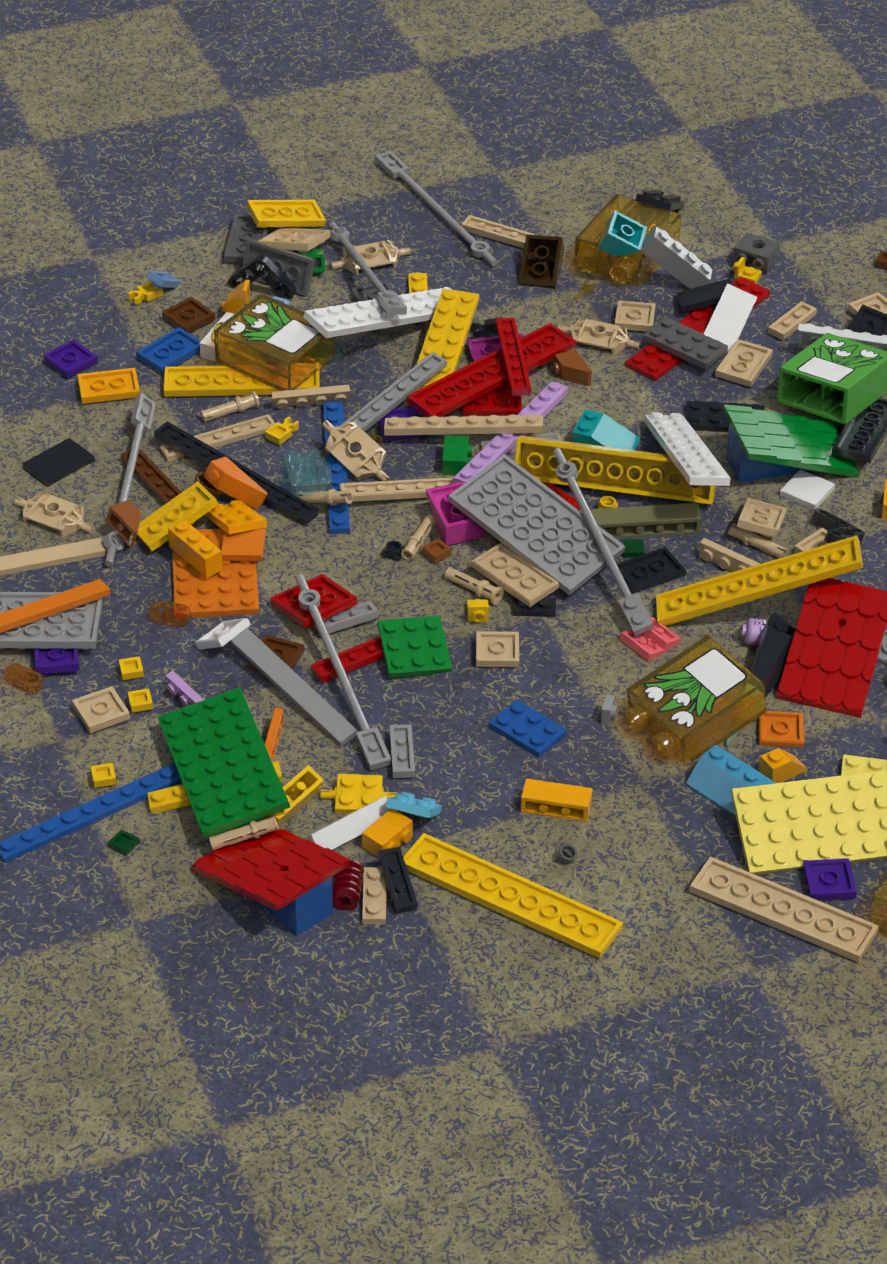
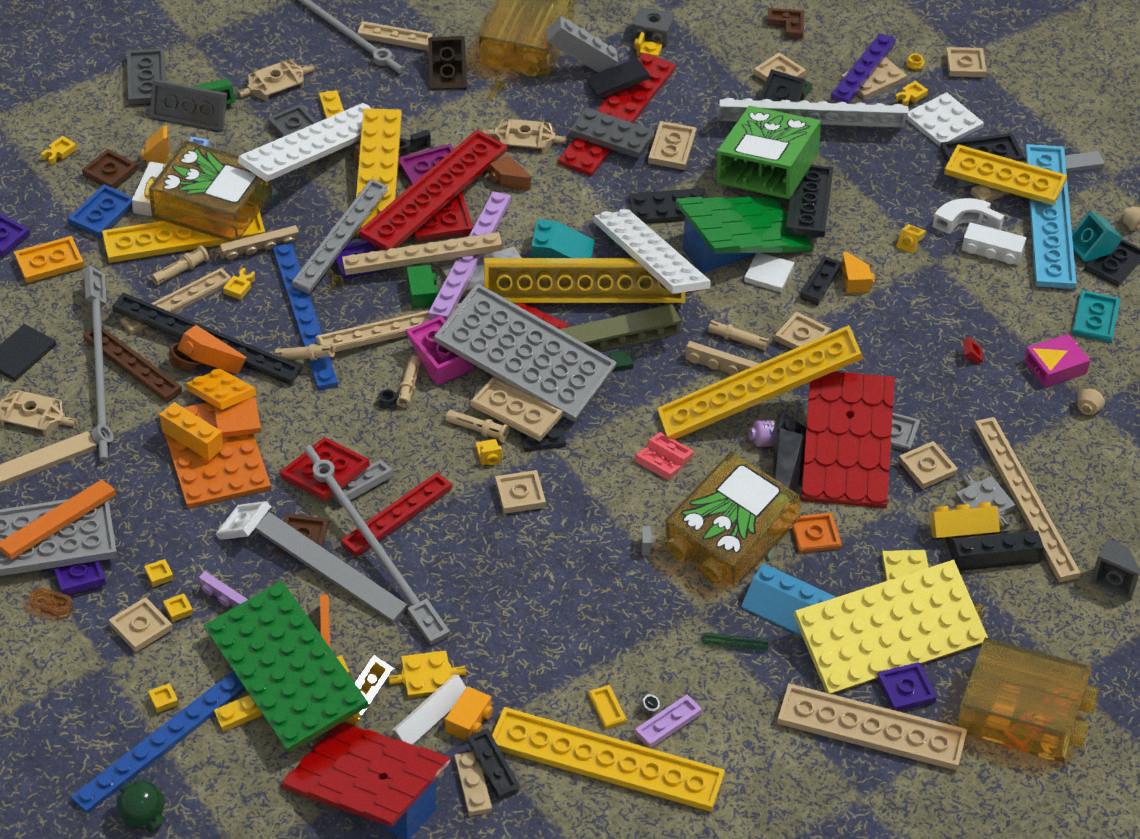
camera: 15 degrees left, 5 degrees up
(54, 860) = (141, 805): none -> dark green brick
(123, 842) = (203, 769): dark green tile -> none
(124, 520) = (111, 411): dark orange slope -> none
(163, 279) = (74, 134): medium blue plate -> none
(170, 613) = (182, 506): clear orange plate -> none
(186, 506) = (168, 386): yellow plate -> none
(243, 833) = (328, 740): tan pin -> none
(261, 271) = (171, 108): black beam -> none
(285, 213) = (179, 43): yellow plate -> none
(296, 239) = (197, 71): tan plate -> none
(307, 471) = (280, 327): clear light blue plate -> none
(348, 886) = (448, 782): dark red piece -> none
(362, 464) = (331, 310): tan plate -> none
(388, 299) = (313, 128): light grey bar -> none
(402, 751) = (457, 619): light grey plate -> none
(407, 803) = (479, 678): medium azure plate -> none
(414, 646) = (438, 503): green plate -> none
(436, 550) = (430, 393): dark orange plate -> none
(513, 356) = (452, 173): red plate -> none
(525, 850) = (607, 707): none -> yellow tile
(527, 728) = (572, 573): blue plate -> none
(556, 800) = (624, 647): light orange brick -> none
(581, 871) = (668, 721): none -> lavender plate
(607, 502) = (583, 316): yellow plate -> none
(622, 235) = (526, 29): teal slope -> none
(631, 604) = (640, 423): light grey bar -> none
(635, 315) = (554, 108): tan plate -> none
(650, 570) = (642, 381): black tile -> none
(670, 812) = (735, 641): none -> clear green axle
(730, 315) = (647, 98): white sticker -> none
(761, 518) = (737, 310): tan plate -> none
(780, 765) = (827, 574): light orange slope -> none
(790, 321) = (705, 93): tan plate -> none
(838, 528) = (818, 315): black beam -> none
(858, 502) = (820, 280): none -> black plate

